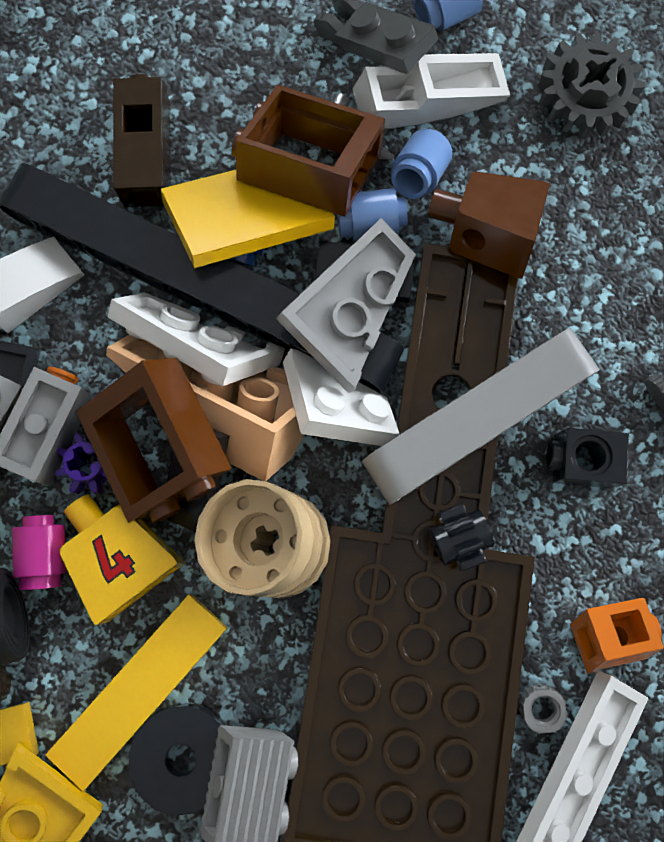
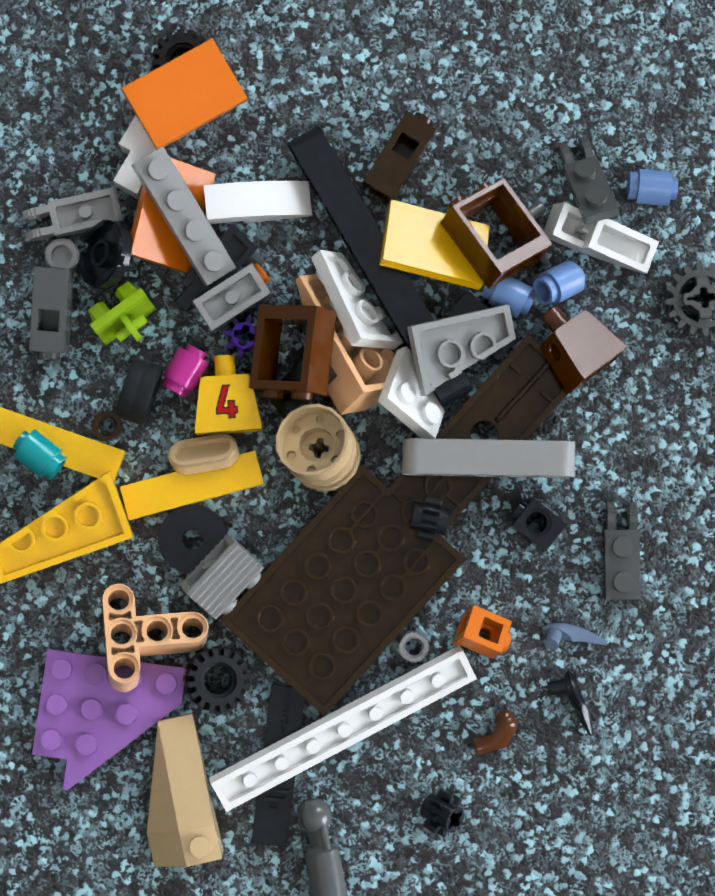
camera: 30 degrees right, 5 degrees up
(126, 642) = (203, 454): none -> tan tile

